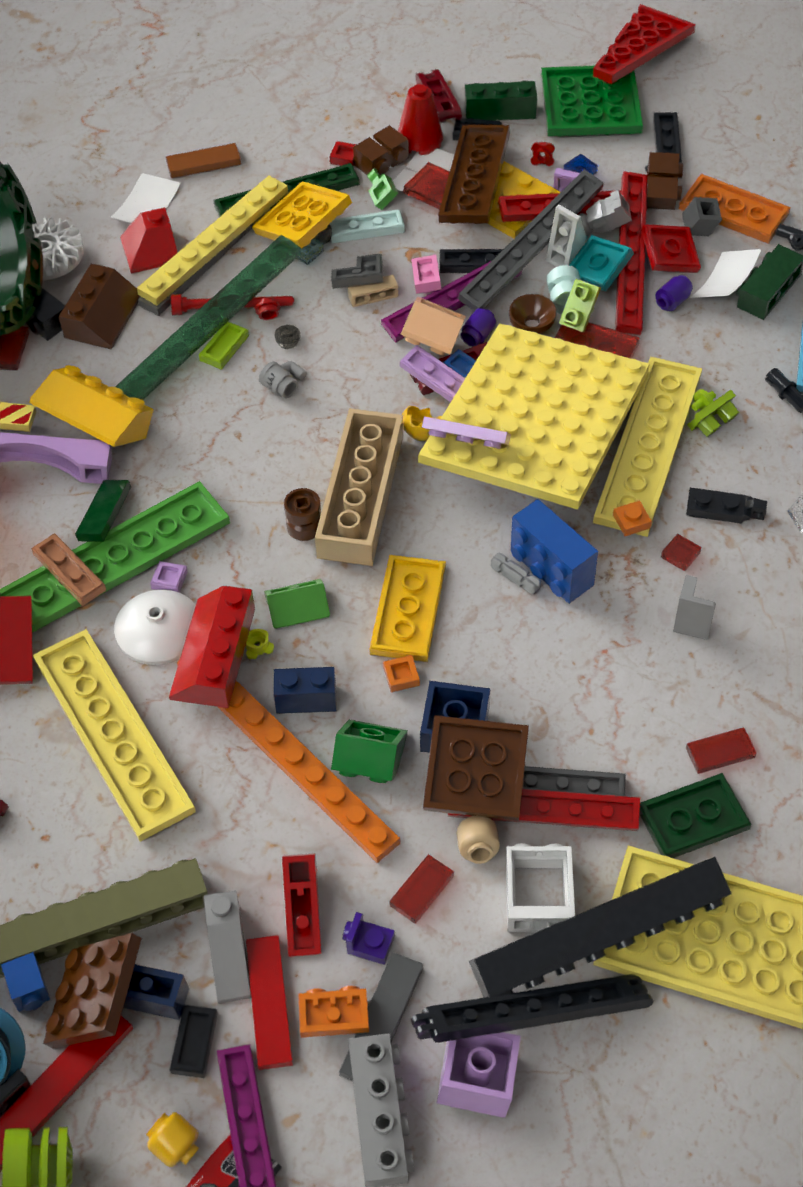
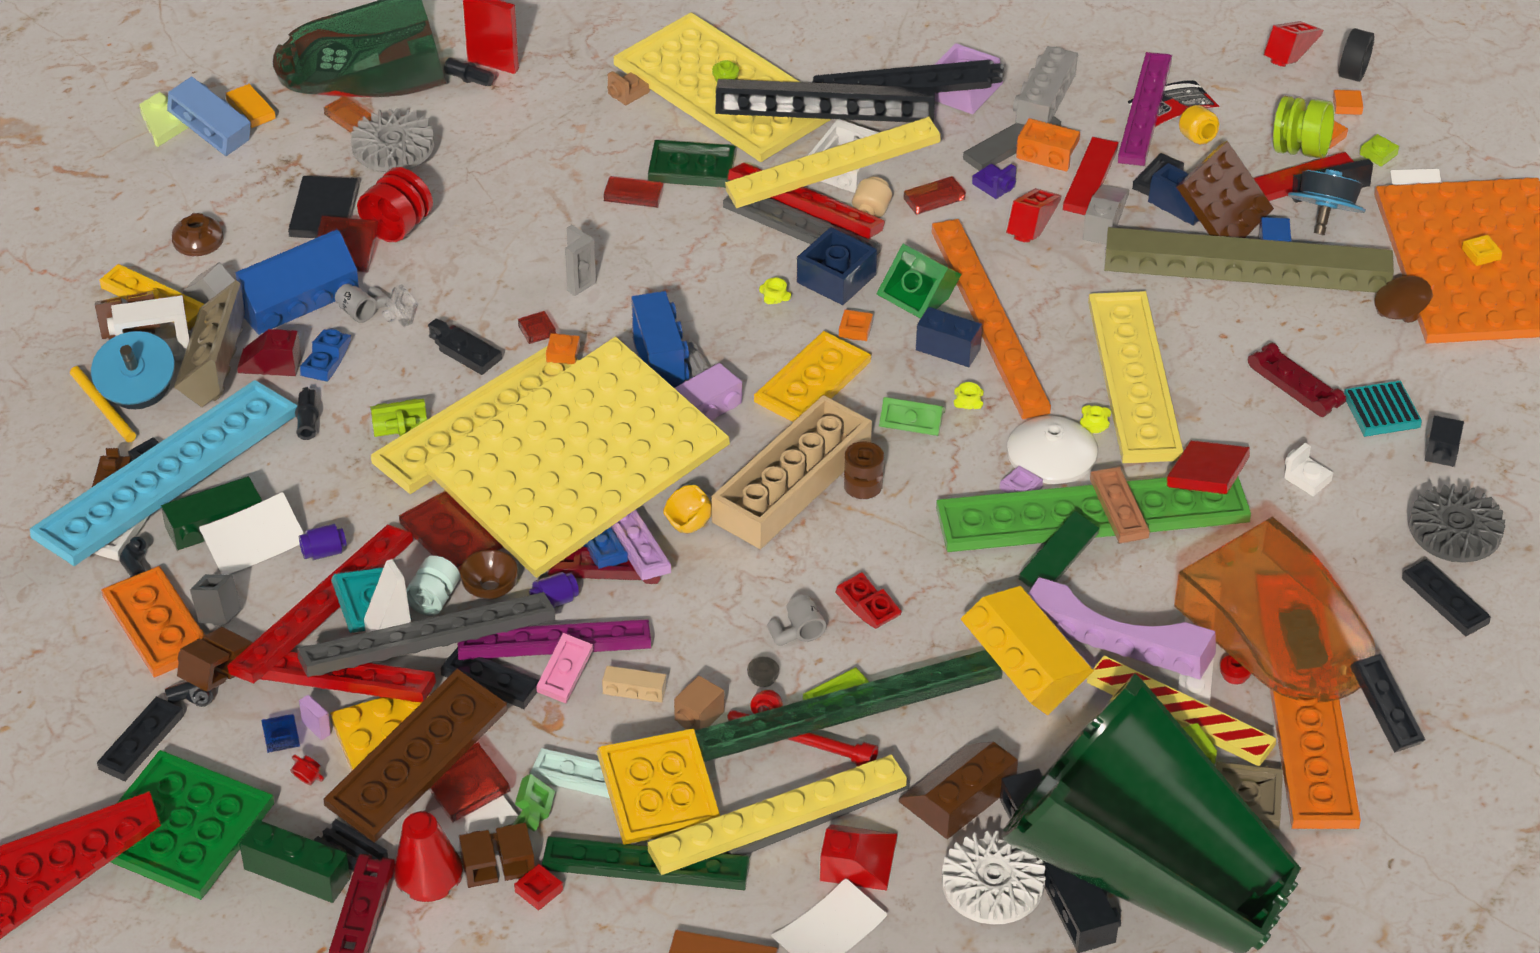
camera: 155 degrees left, 10 degrees down
(130, 676) = (1095, 418): none -> neon yellow plate
(214, 647) = (1014, 380): red slope -> none
(236, 419) = (866, 602): none -> red slope
(315, 288) = (699, 704): none -> medium nougat brick
(368, 271) = (631, 691): dark grey tile -> none
(433, 326) = (612, 580): light nougat slope -> none
(465, 432) = (674, 417): lavender plate -> none
(476, 768) = (848, 208): reddish brown plate -> none
(480, 537) = (713, 391): none -> lavender brick
(504, 677) = (775, 291): none -> neon yellow plate
(532, 844) = (832, 162): none -> light yellow plate
(579, 305) = (443, 540): lime hips -> none
(606, 214) = (315, 626): light grey piece -> none
(670, 248) = (279, 586): red tile -> none
(744, 949) = (725, 70): none -> lime plate

